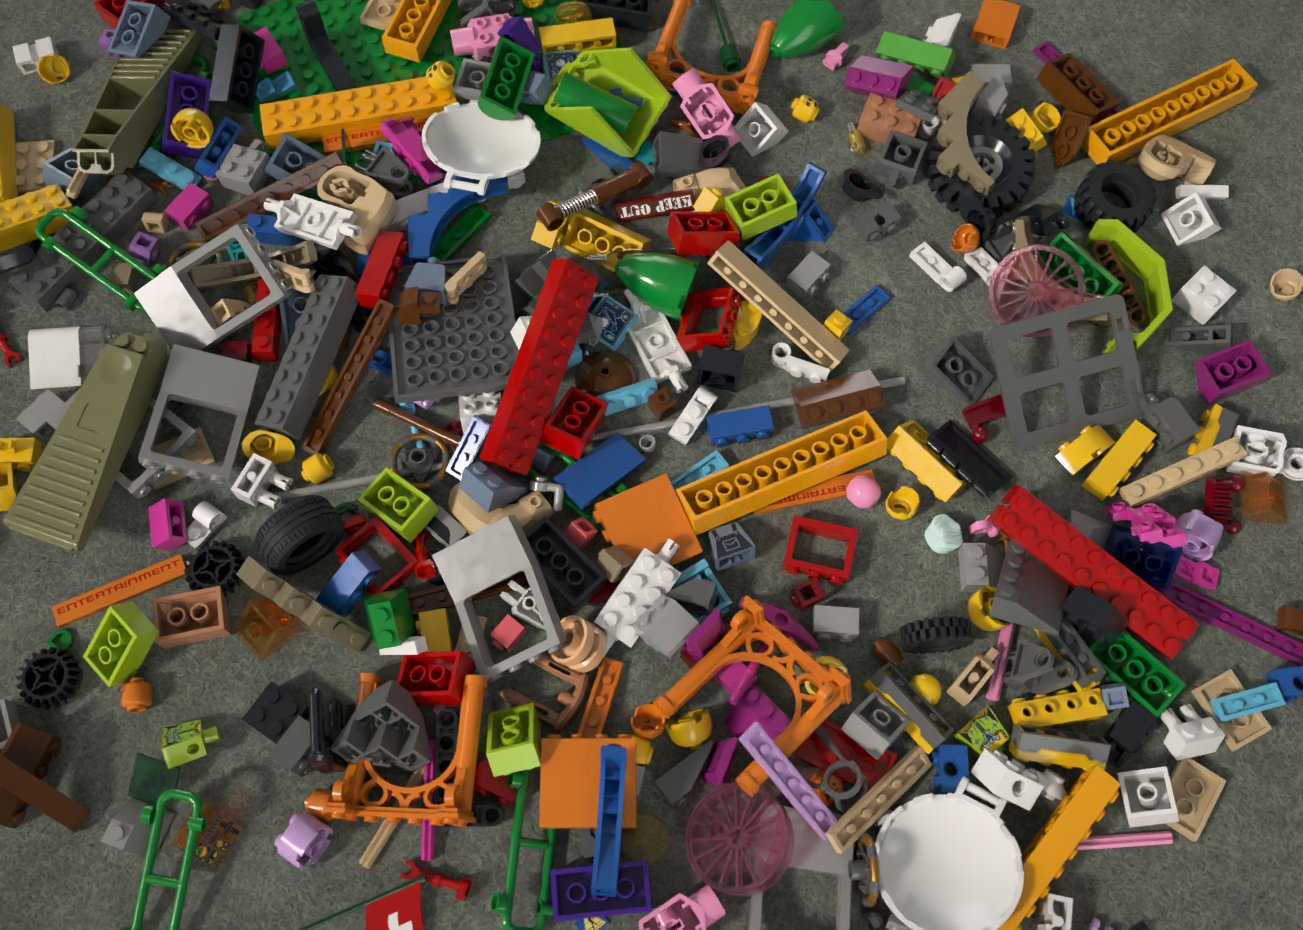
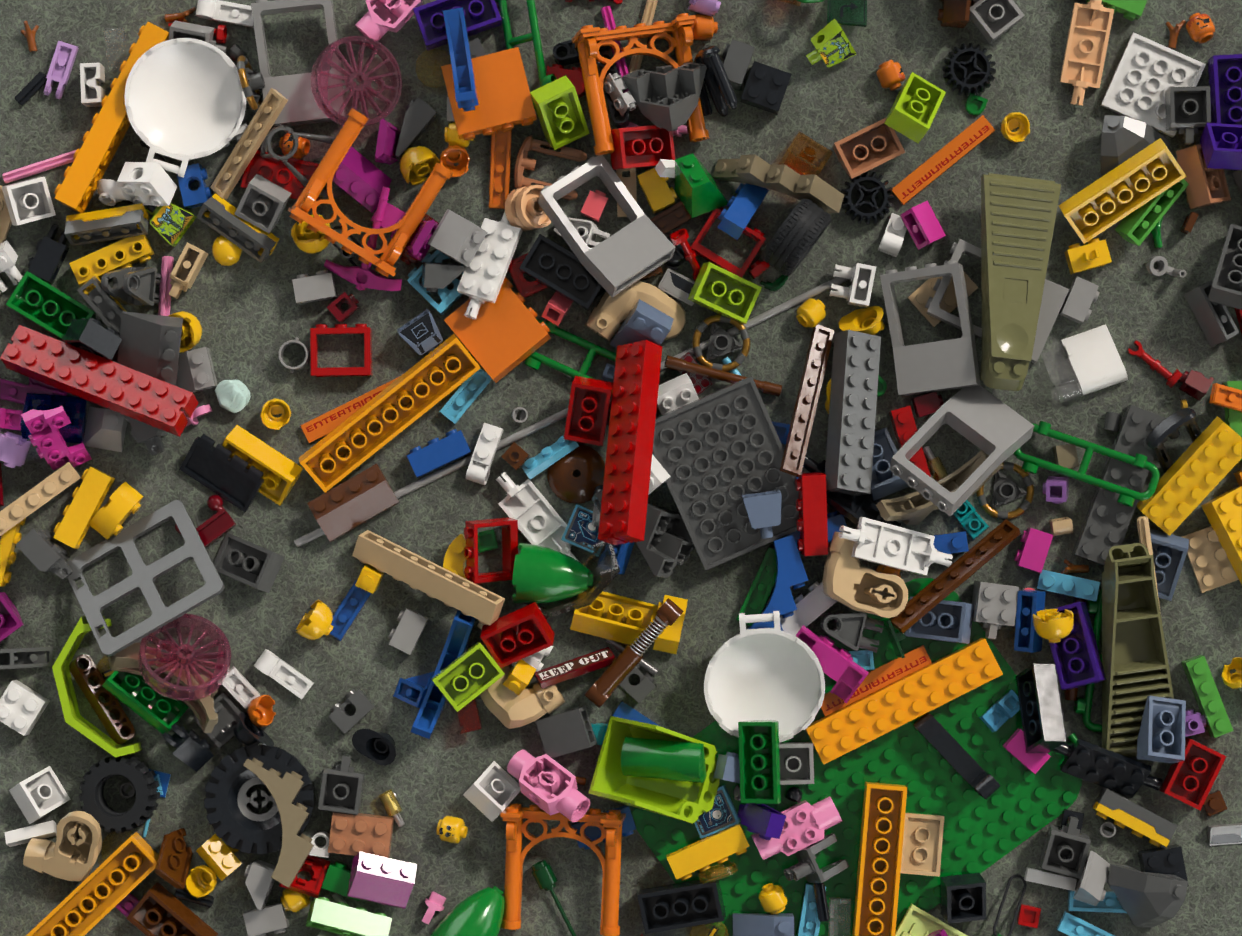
camera: 170 degrees right, 20 degrees up
(22, 599) = (1013, 121): none -> yellow hair
(88, 59) = (1207, 696): none -> bright green brick
(230, 310) = (946, 437): tan leg -> none
(296, 277) = (890, 481): tan plate -> none
(415, 303) = (765, 476): reddish brown brick -> none
(439, 731) = (622, 101): none -> light grey hinge
(440, 75) = (826, 745): yellow head -> none
(465, 277) = (730, 524): tan plate -> none
(469, 446) = (676, 359): tile -> none
(542, 483) = (601, 344): light grey plate -> none
(599, 470) = (554, 373): blue tile -> none
(613, 563) = (518, 284): dark tan brick -> none
(617, 91) = (639, 785): blue bar -> none
(714, 152) = (530, 735): black piece -> none
(720, 368) = (469, 503): black brick -> none
(788, 779) = (325, 128): lavender tile -> none
(796, 366) = (396, 527): white plate -> none
(863, 491) = (312, 416): bright pink hair -> none
(874, 546) = (307, 354): none -> light grey piece
(887, 651) = (264, 273): reddish brown brick -> none
(898, 300) = (316, 622): none -> yellow cylinder
(918, 104) = (334, 850): dark grey plate -> none
(936, 635) = (225, 291): black tyre -> none
(1114, 696) = (65, 280): sand blue plate -> none

